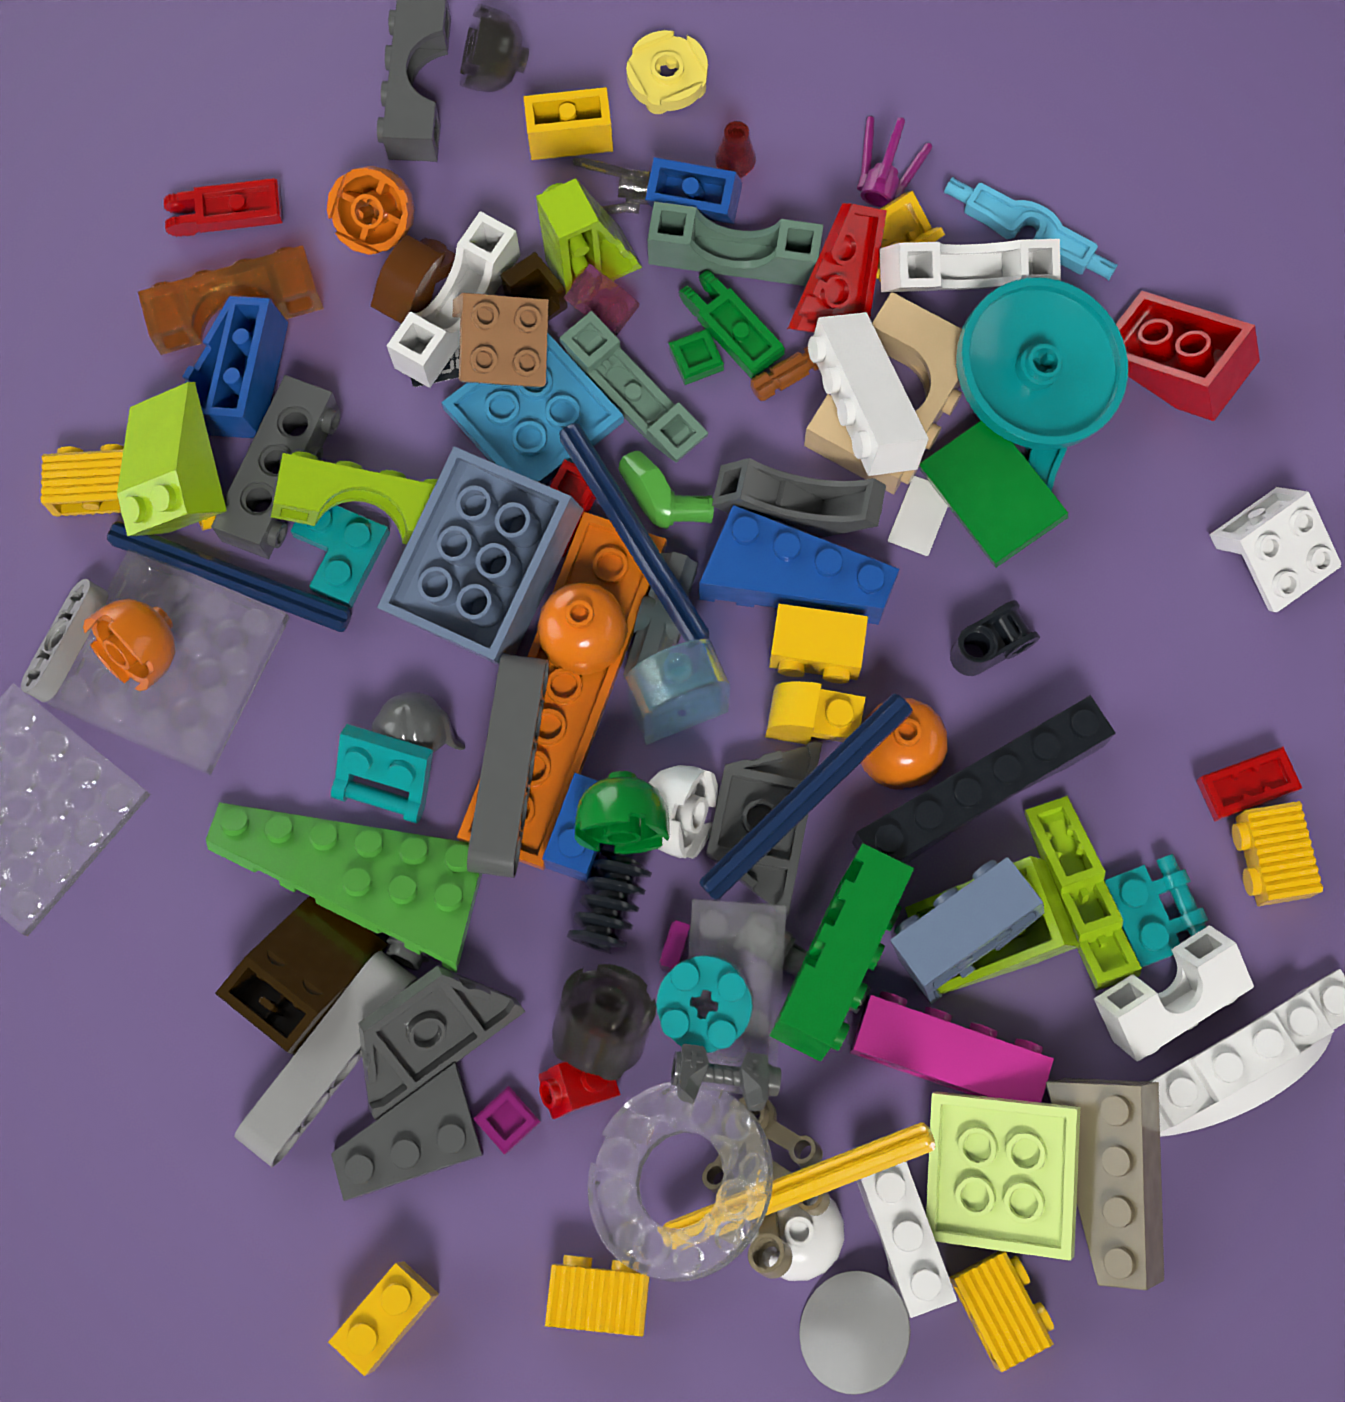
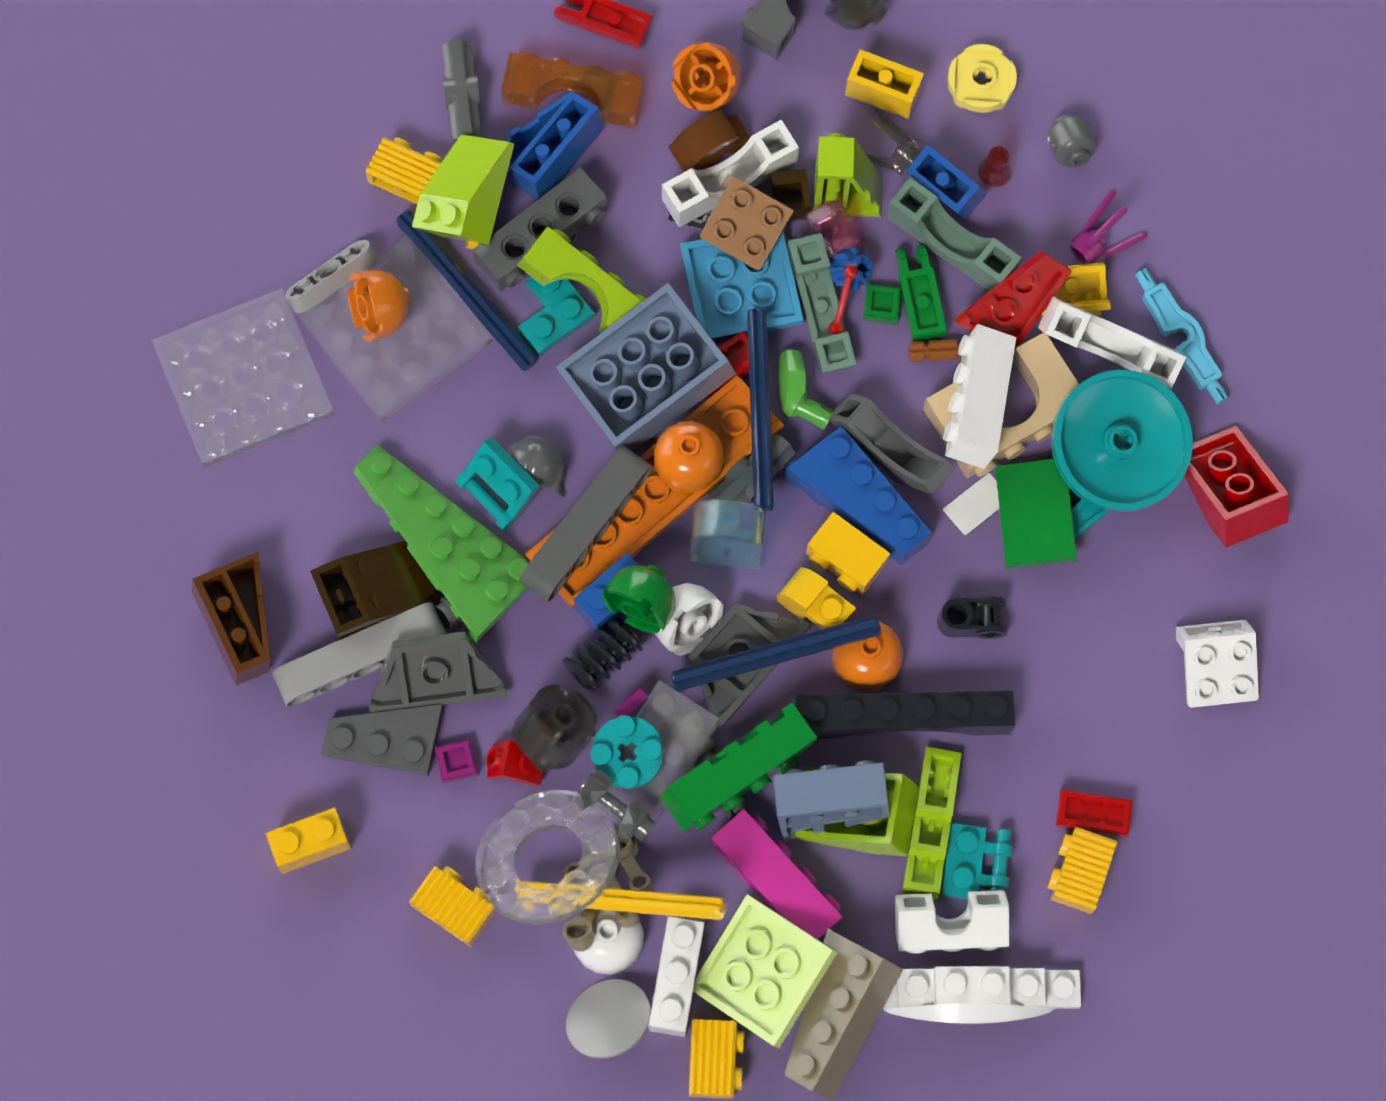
camera: 25 degrees right, 0 degrees up
(104, 359) = (461, 89): none -> dark grey piece
(155, 1093) = (236, 616): none -> reddish brown wedge
(644, 334) = (851, 257): none -> blue gear
(662, 404) = (836, 327): none -> red hinge
(799, 85) = (1072, 140): none -> dark grey head

